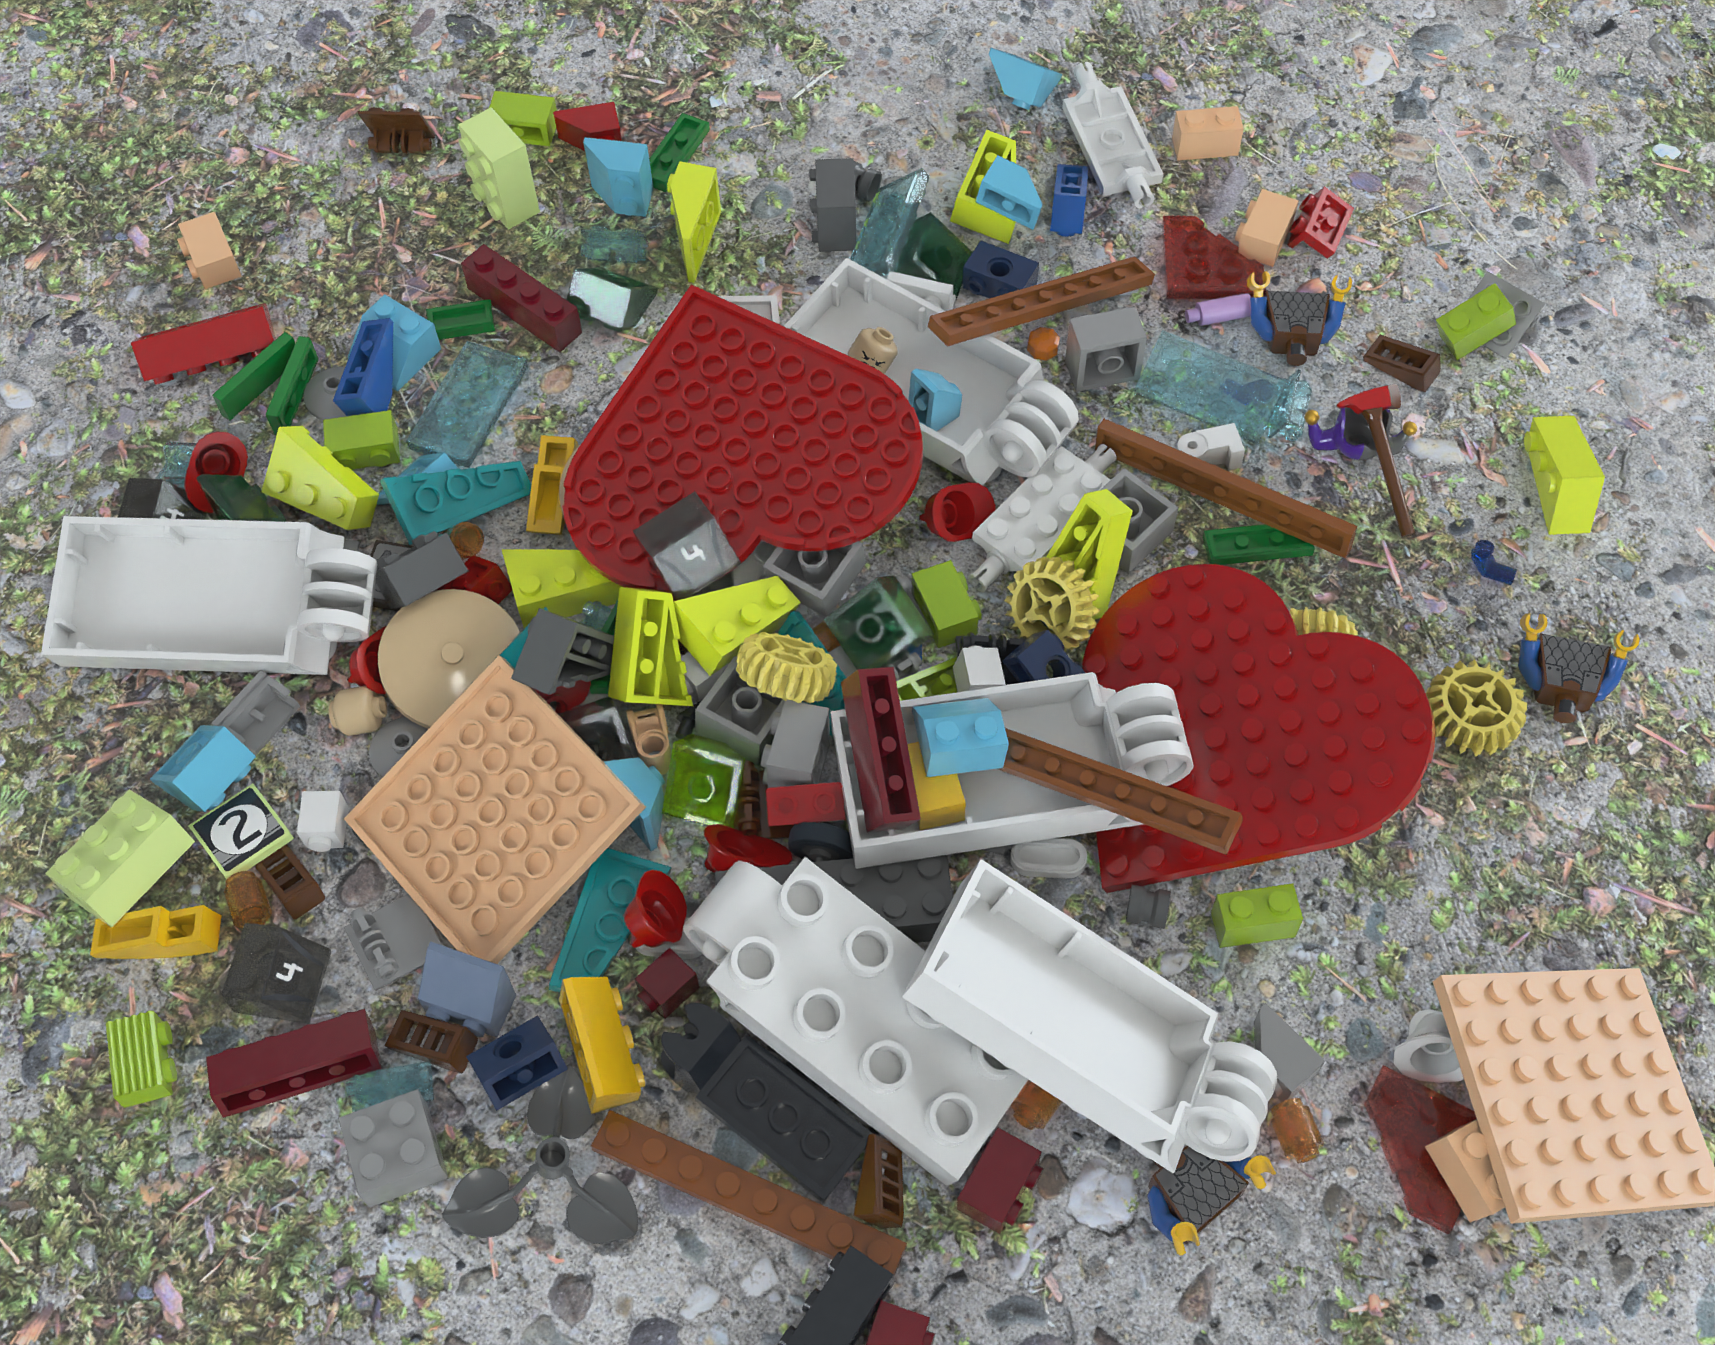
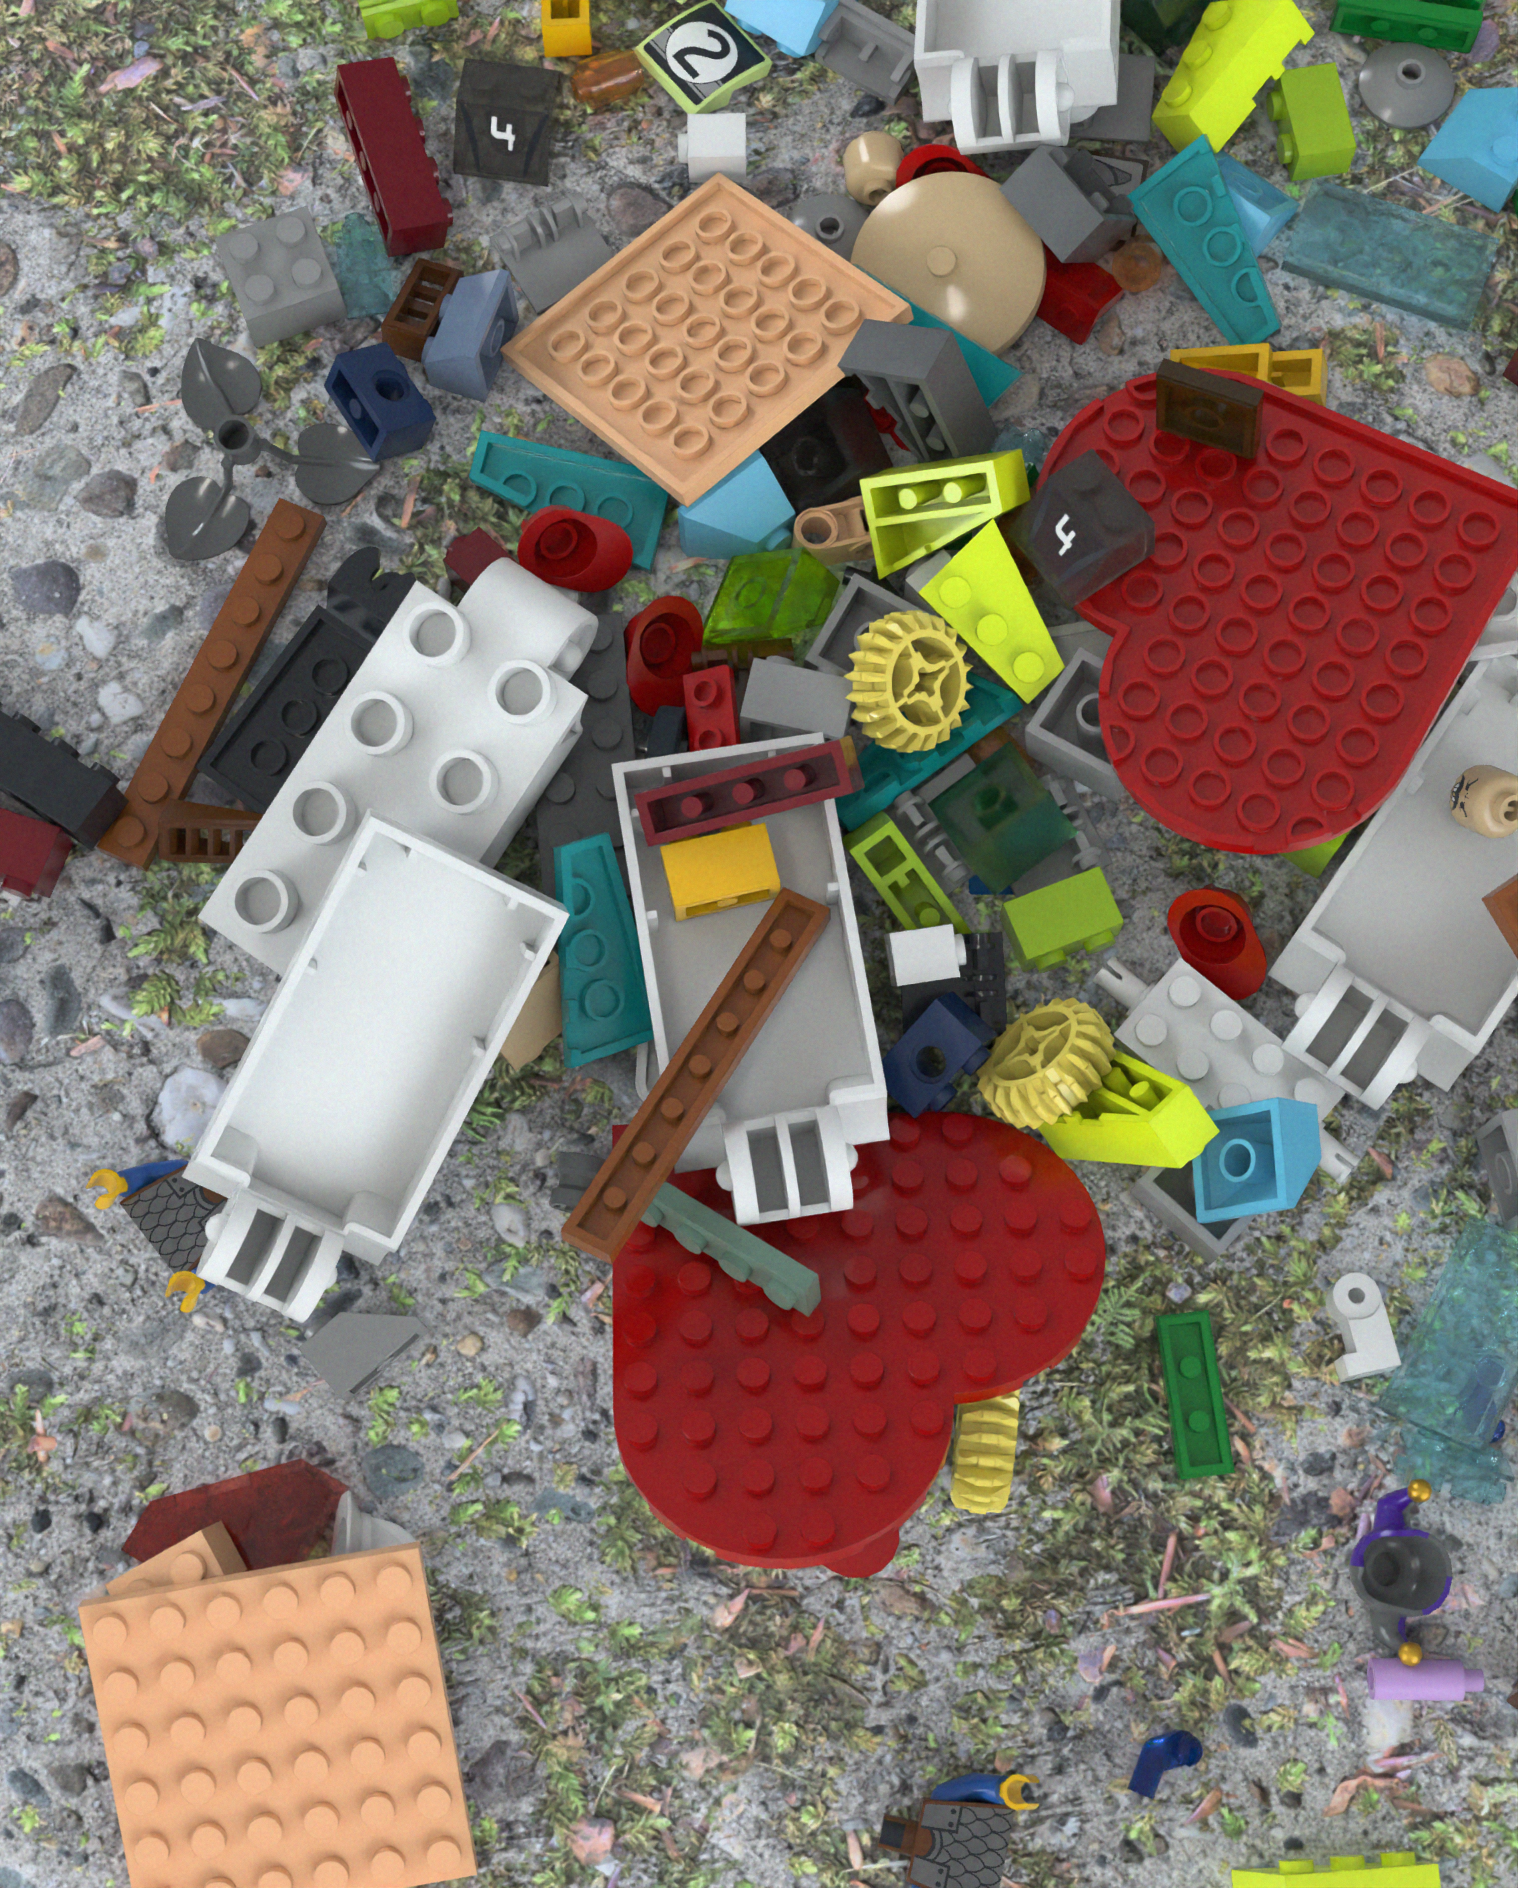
camera: 90 degrees right, 15 degrees up
(299, 897) = (623, 144): reddish brown slope -> none
(369, 370) = (1414, 110): blue slope -> none
(555, 581) = (1071, 370): neon yellow wedge -> none
(600, 1042) = (391, 487): yellow slope -> none
(609, 462) = (1208, 408): none -> dark brown tile
(934, 399) = (1403, 893): medium azure slope -> none
(943, 873) = (598, 955): none -> teal wing
(960, 736) = (774, 893): medium azure slope -> none
(999, 1181) = (210, 977): dark red brick -> none
(1127, 471) = (1256, 1159): none -> medium azure slope
(1208, 769) = (736, 1249): none -> sand green plate
(1227, 489) = (1270, 1357): dark orange plate -> none
(1256, 915) = (560, 1329): lime brick -> none
(1296, 1130) = (258, 1357): clear orange brick -> none
(1371, 404) = (1426, 1578): reddish brown piece -> none
(1424, 441) = (1425, 1681): none -> lavender cylinder
(1485, 707) = (916, 1708): light yellow gear -> none

